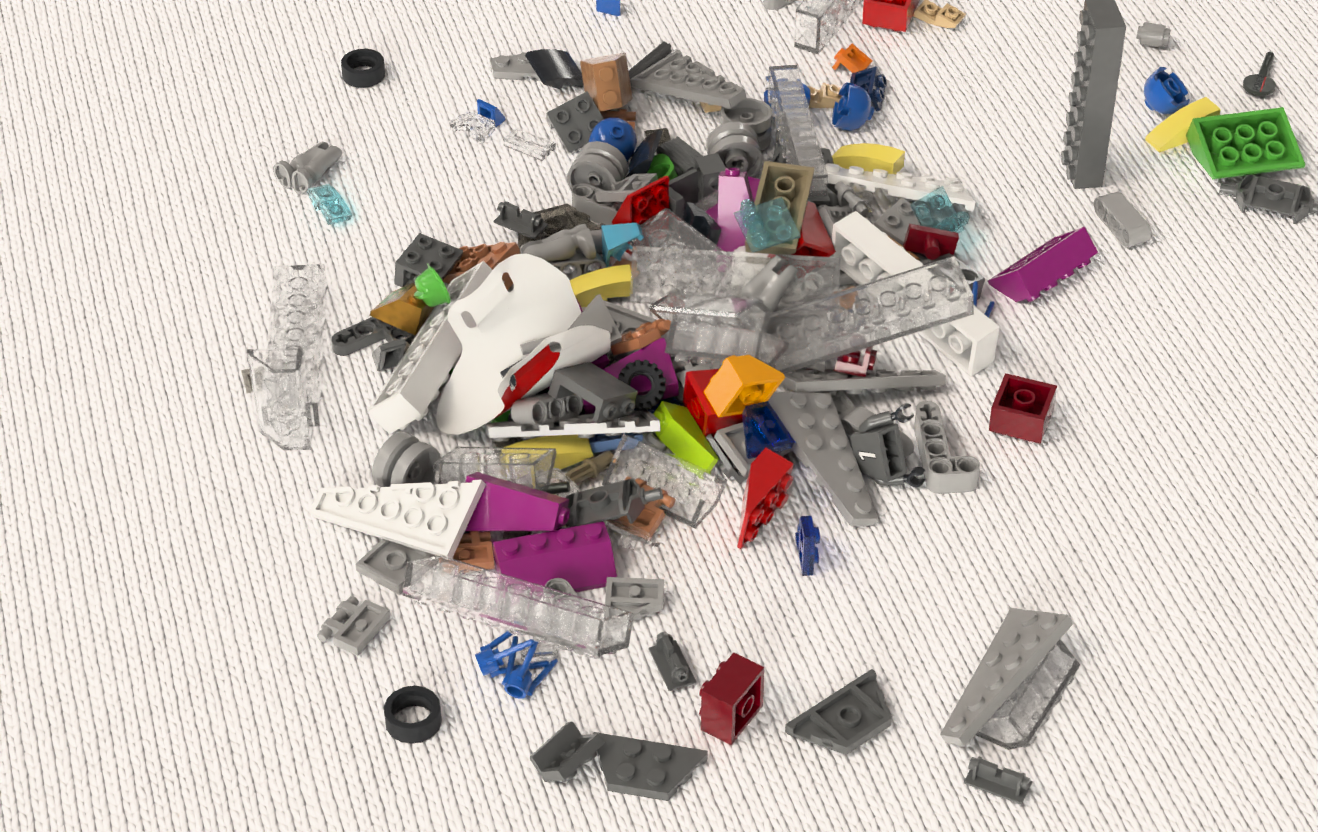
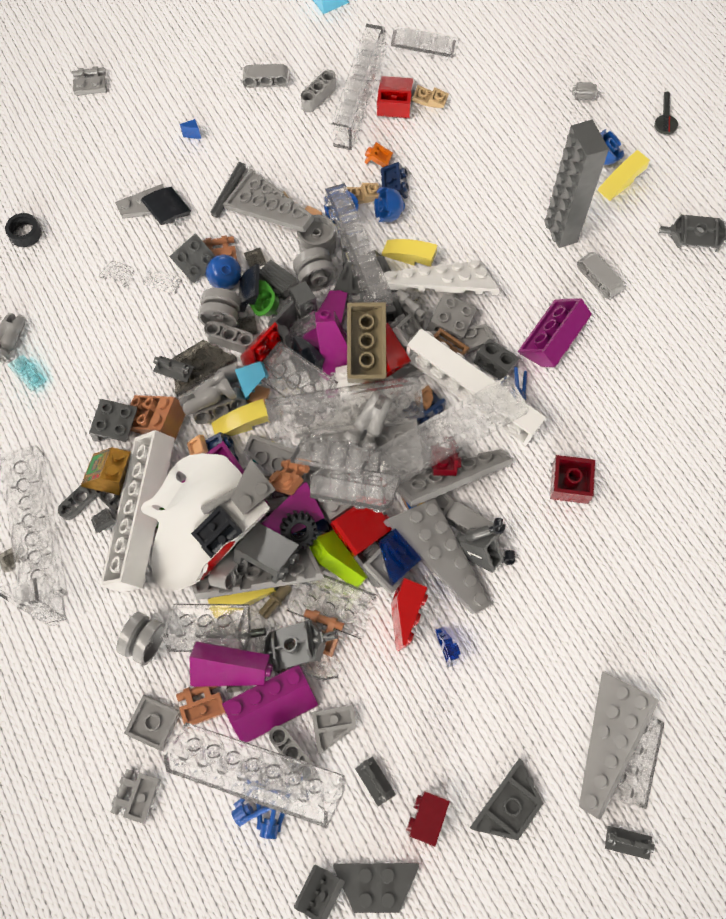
camera: 10 degrees left, 25 degrees up
(407, 514) = (160, 689): white wing -> none
(417, 731) = (180, 877): black tyre -> none
(431, 288) = (121, 464): bright green piece -> none
(490, 112) = (127, 258): blue slope -> none
(607, 81) = (208, 217): medium nougat slope -> none
(625, 187) = (247, 324): light grey wing -> none
(741, 383) = (375, 529): light orange slope -> none
(766, 224) = (360, 362): clear light blue hinge -> none
(930, 241) = (475, 333): dark red tile -> none
(938, 212) = (476, 307): clear light blue hinge -> none
(942, 471) = (520, 526): light grey beam -> none
(1244, 143) = (672, 189): bright green slope -> none

